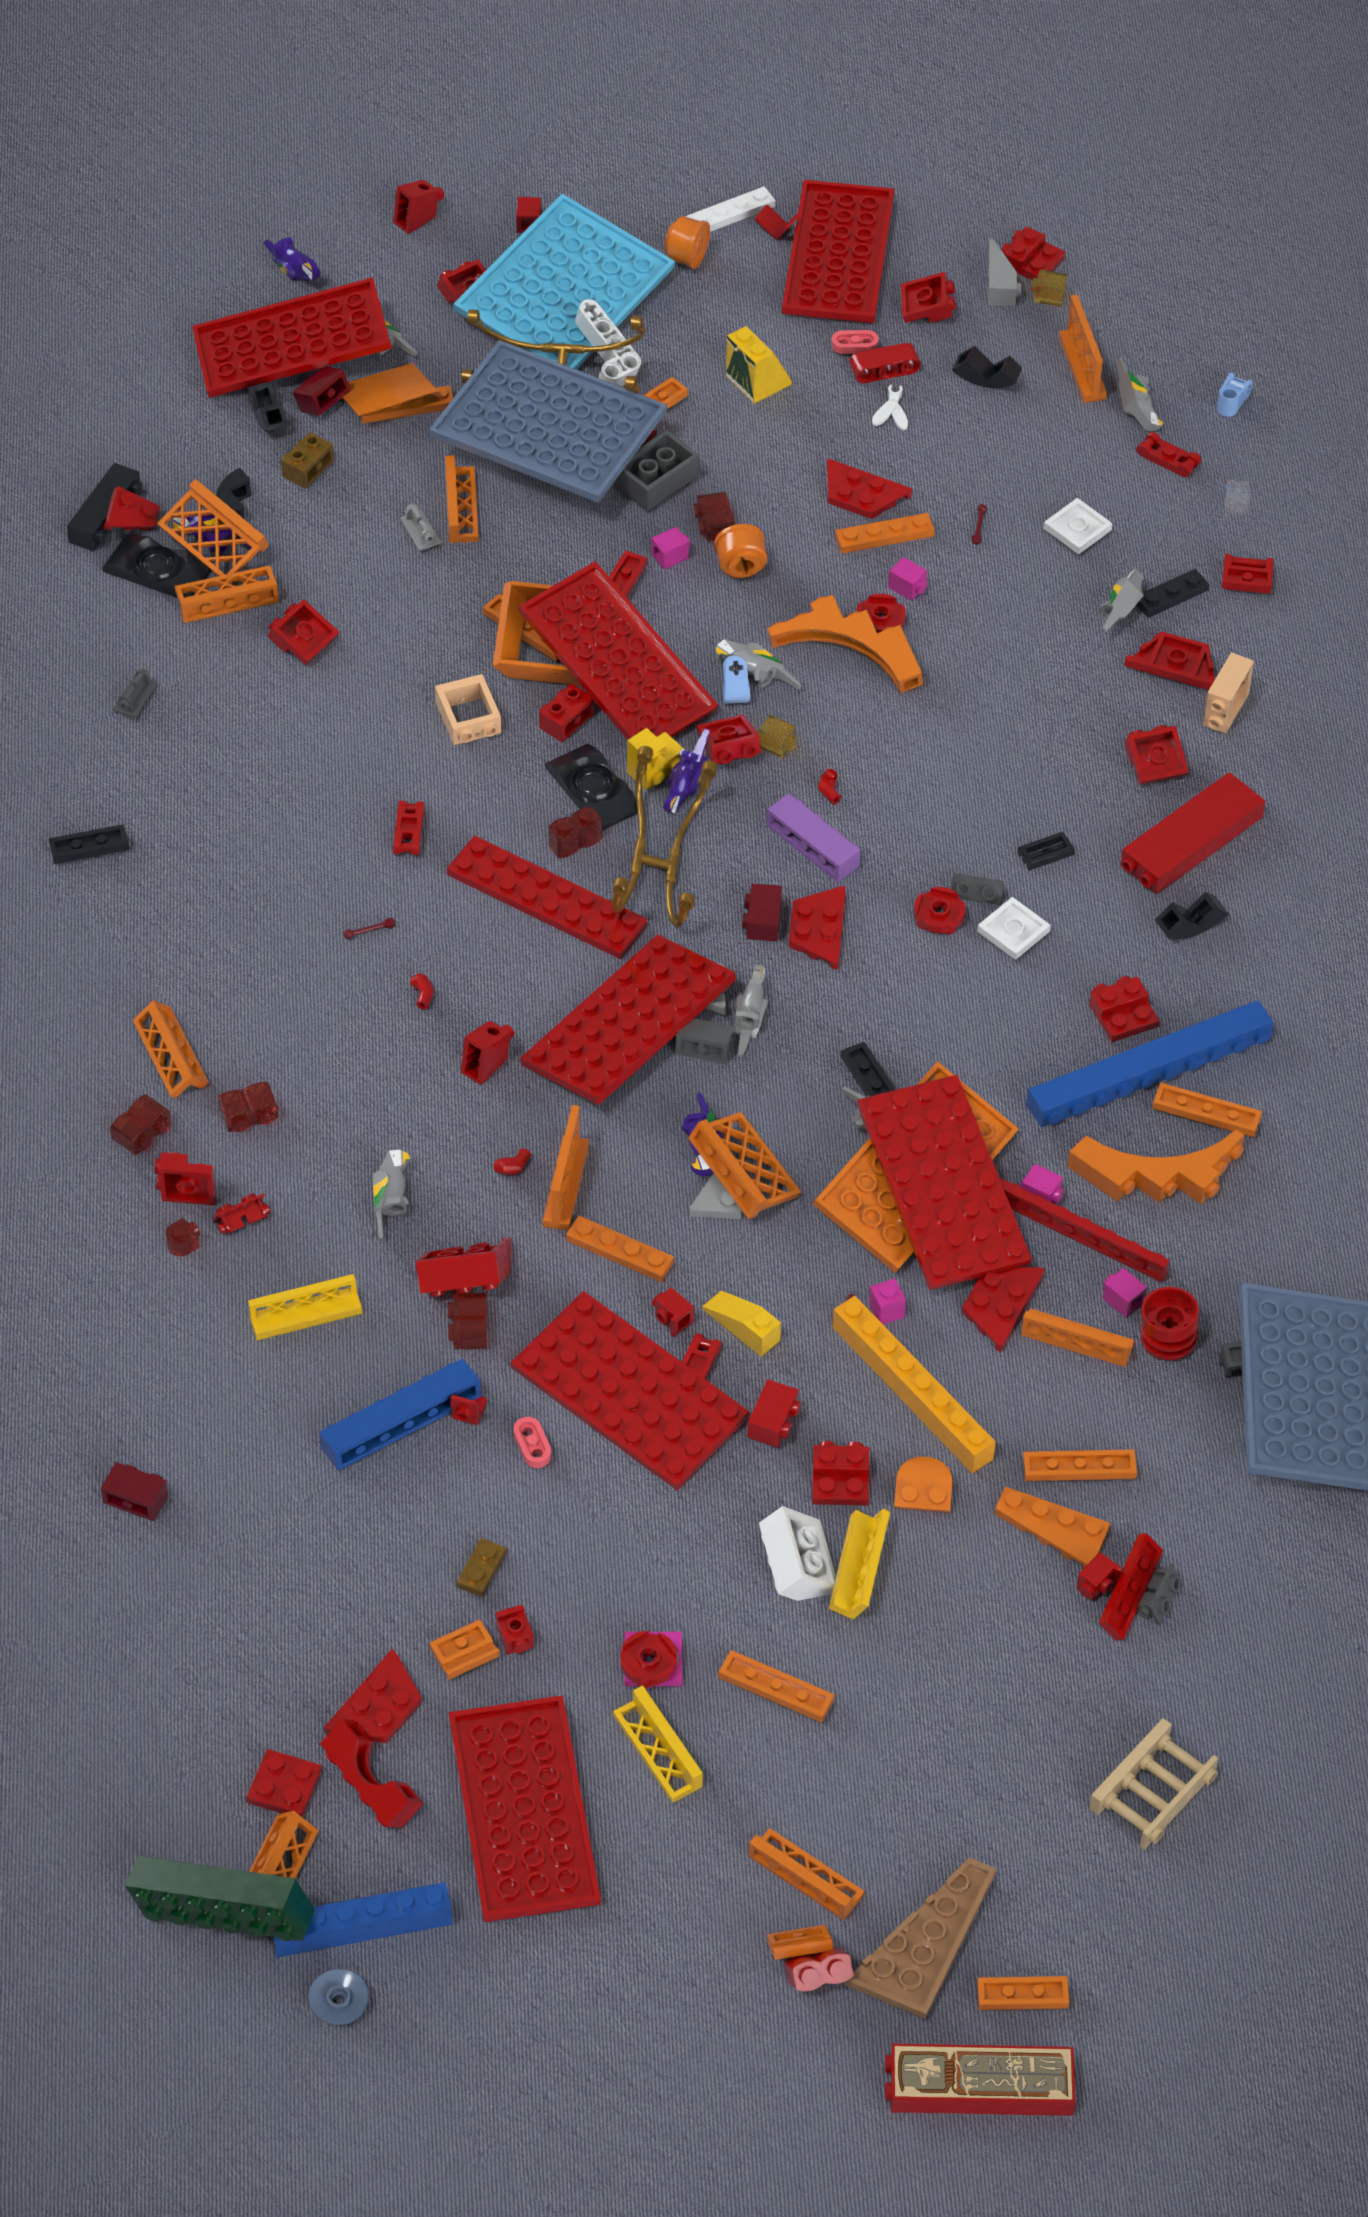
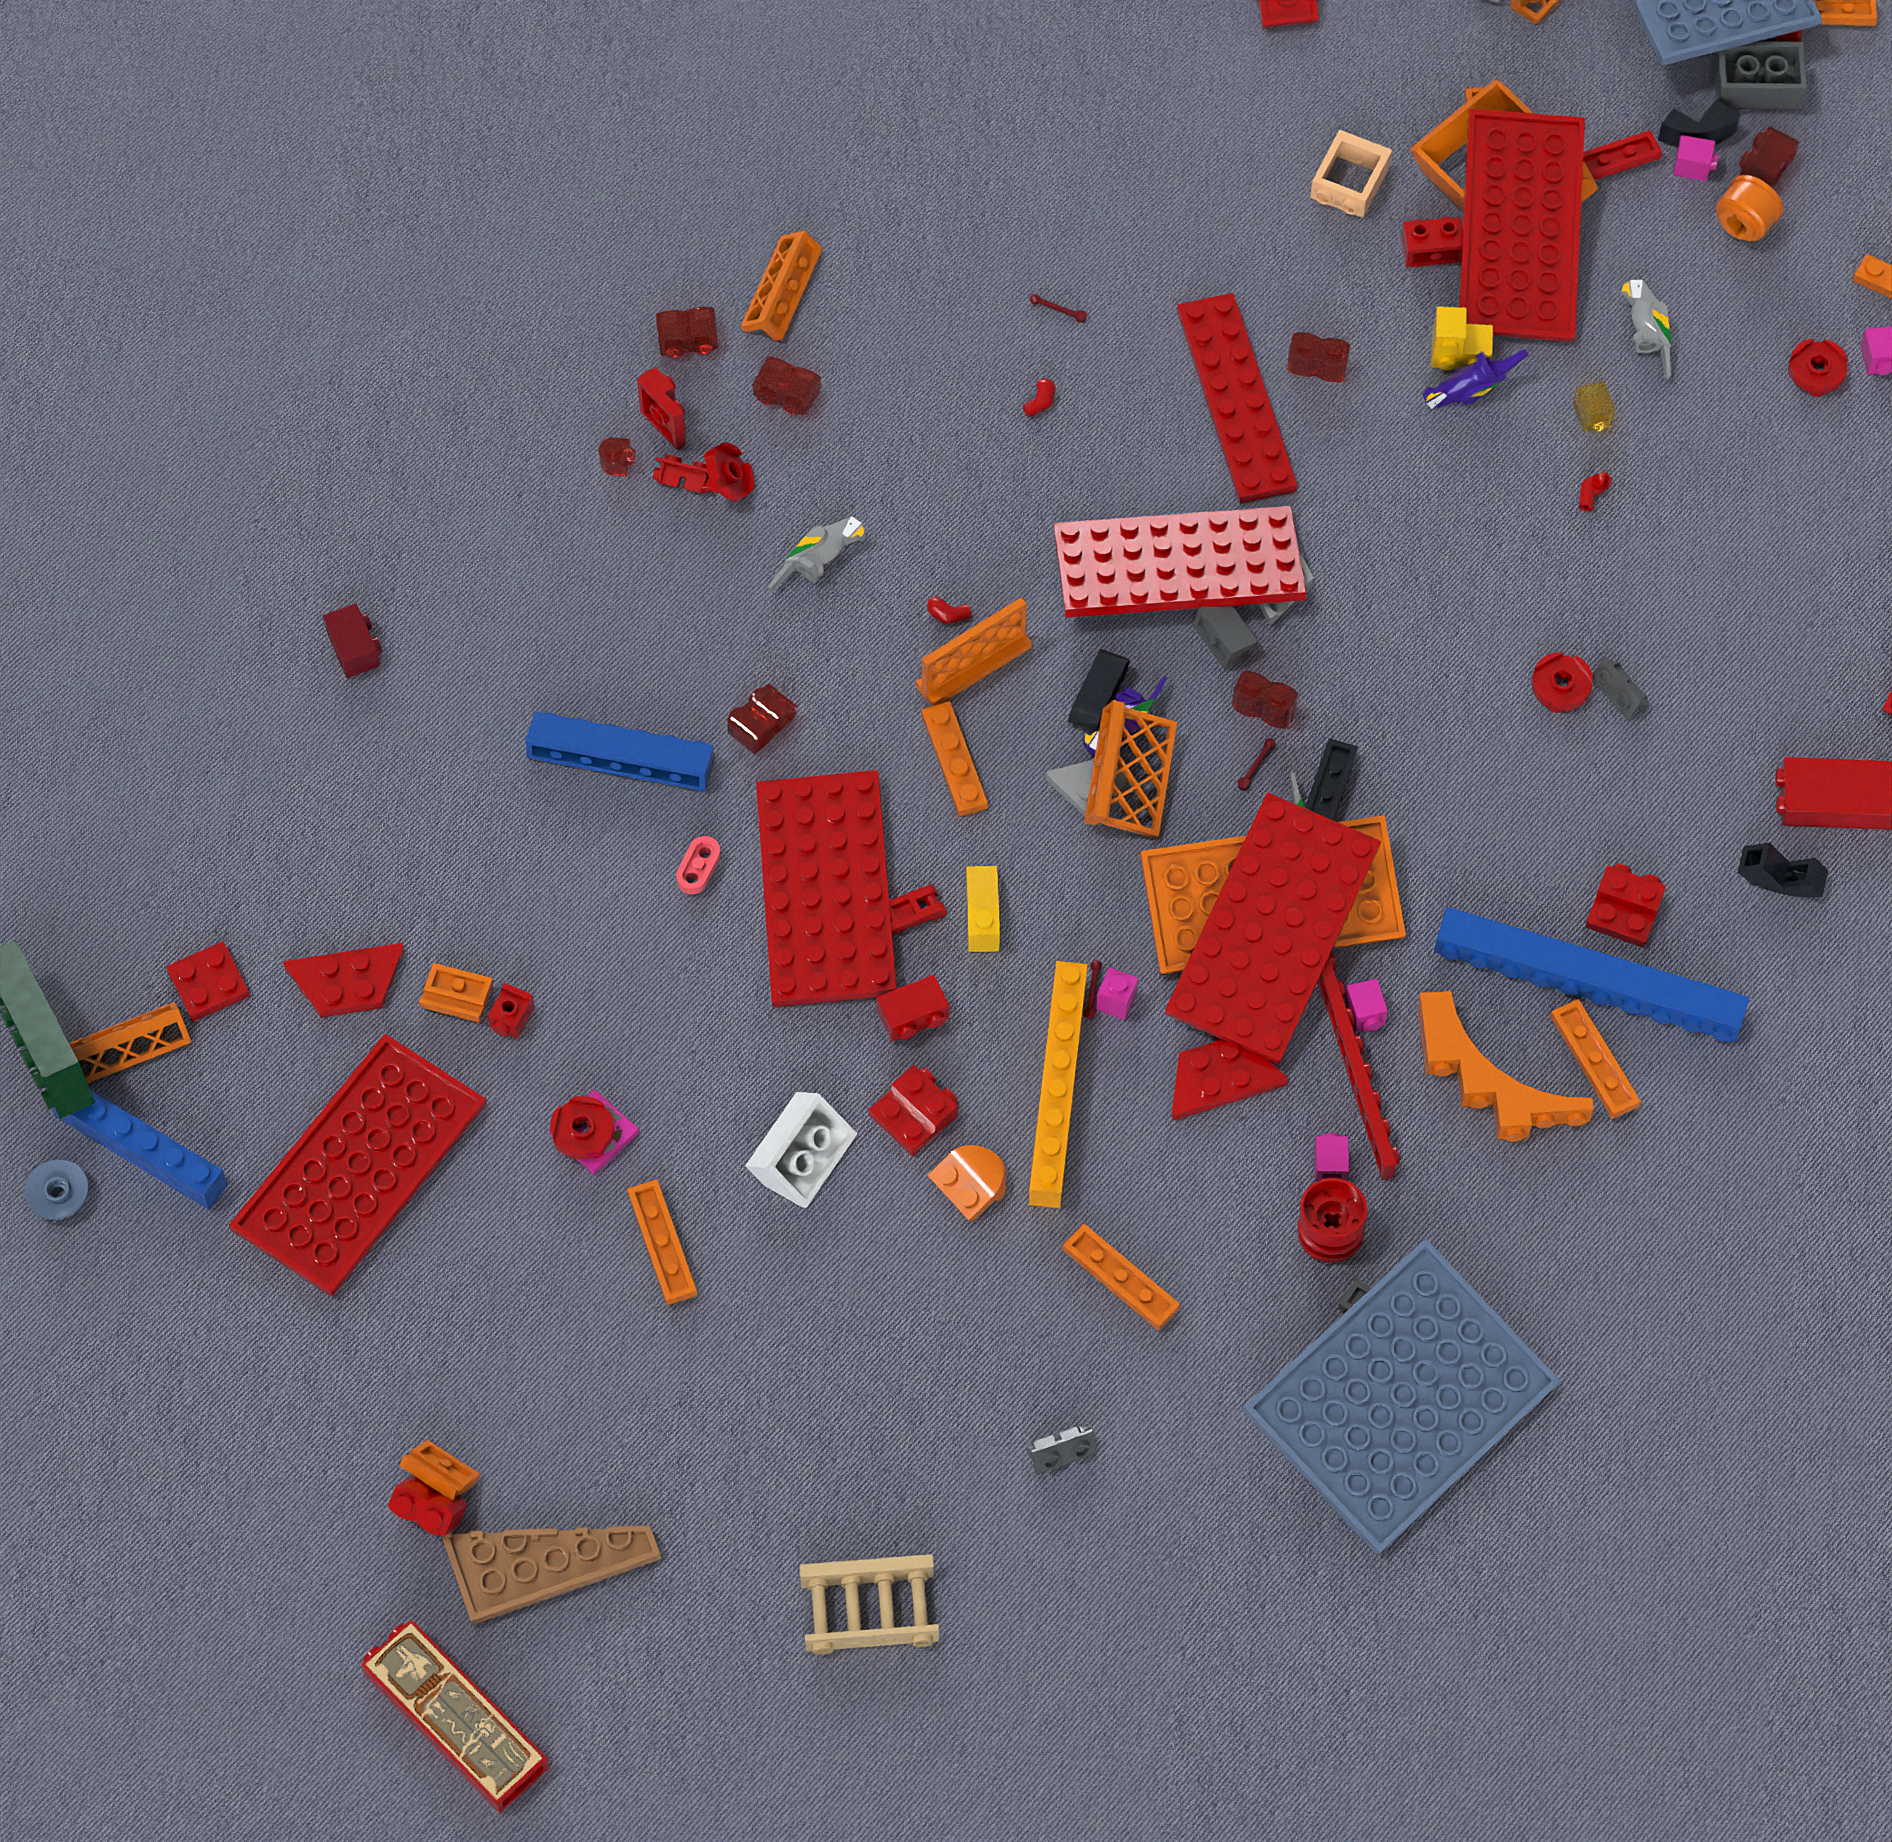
camera: 45 degrees right, 10 degrees up
(88, 844) = (908, 52): black plate -> none
(277, 1186) = (728, 472): none -> red plate
(304, 1310) = (646, 597): yellow fence -> none
(350, 1749) = (276, 997): red arch -> none
(408, 826) = (1186, 242): red plate -> none
(462, 1269) = (806, 669): red wedge -> none
(467, 1410) = (672, 794): red bracket -> none
(481, 1567) = (547, 936): pearl gold plate -> none
(485, 1051) = (1028, 492): red torso -> none
(592, 783) = (1385, 329): black slope -> none
(621, 886) = (1321, 493): pearl gold bar -> none
(659, 521) = (1715, 125): none -> black brick
(666, 1134) = (1098, 689): none -> black beam
(668, 1740) = (523, 1211): yellow fence -> none
(673, 1311) = (932, 850): red brick -> none
(730, 739) = (1548, 376): red plate -> none
(735, 686) = (1610, 330): light blue piece -> none
(750, 1009) = (1295, 637): light grey animal -> none
(763, 912) = (1402, 559): dark red brick -> none
(776, 1058) = (1265, 699): none -> clear red brick
(803, 1877) = (502, 1414): orange fence -> none
(813, 837) = (1523, 526): medium lavender brick -> none
(815, 1120) = (1244, 783): none -> dark red hinge
(818, 925) = (1442, 609): red wing -> none
(857, 632) = (1754, 337): orange arch -> none
(858, 1563) = (840, 1196): yellow fence -> none
(1013, 928) = (1610, 751): white plate -> none
(1023, 1993) = (568, 1676): orange plate -> none
(1047, 854) = (1722, 708): black tile -> none
(1065, 1529) = (1045, 1316): orange wing -> none
(1077, 1337) = (1249, 1163): orange fence -> none
(1098, 1577) = (1023, 1386): red brick -> none
(1130, 1586) = (1042, 1419): red plate -> none

